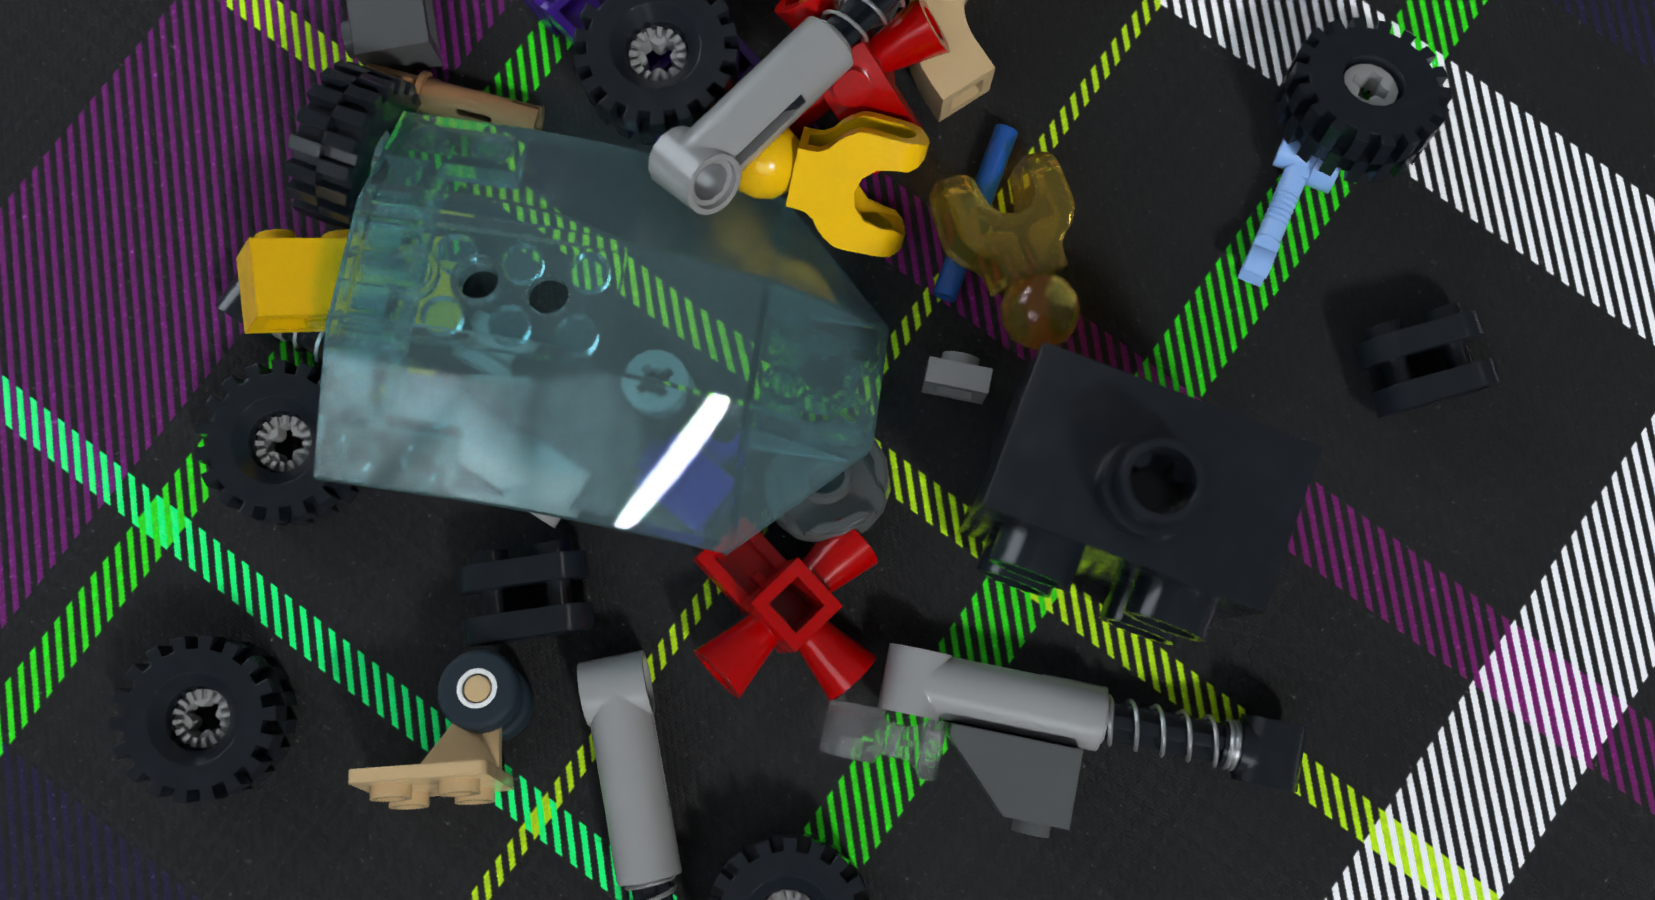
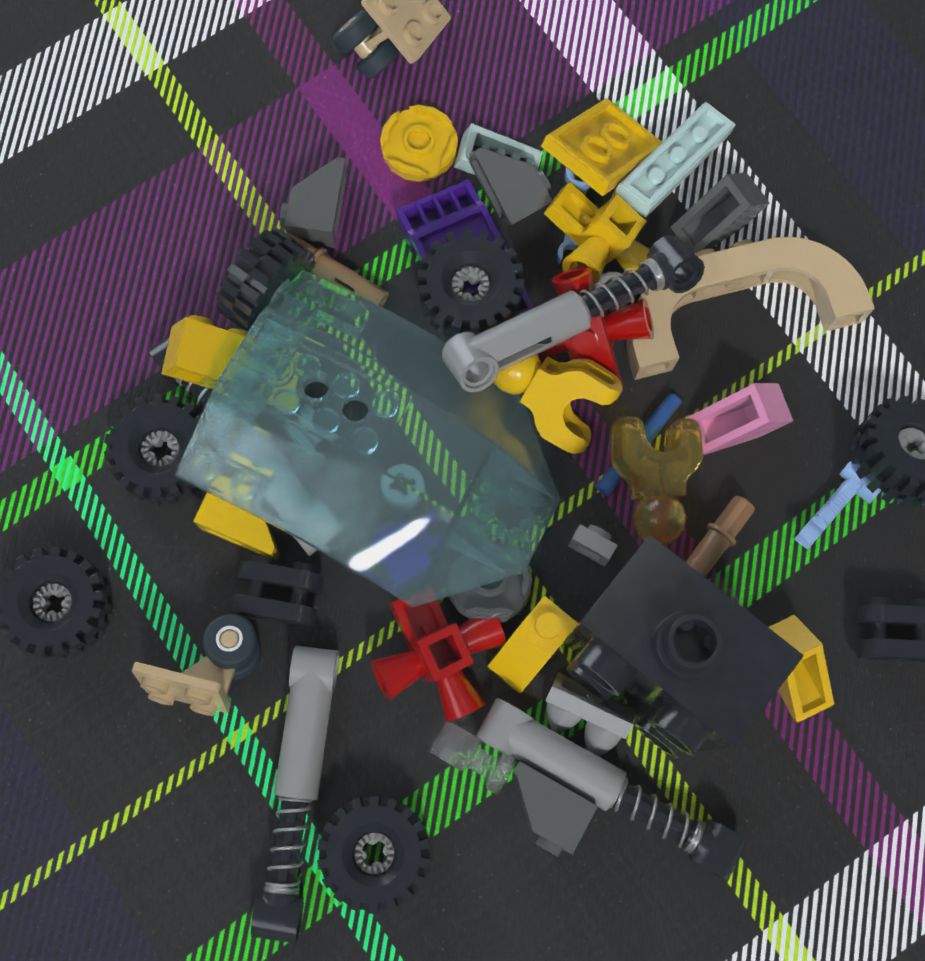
camera: 15 degrees right, 5 degrees down
(434, 521) = (236, 526): none -> yellow slope
(917, 550) = (532, 644): none -> yellow slope
(1054, 625) = (605, 720): none -> light grey tile
(1112, 124) = (742, 416): none -> bright pink slope
(1133, 306) = (720, 535): none -> medium nougat axle
(1334, 481) = (808, 685): none -> yellow slope

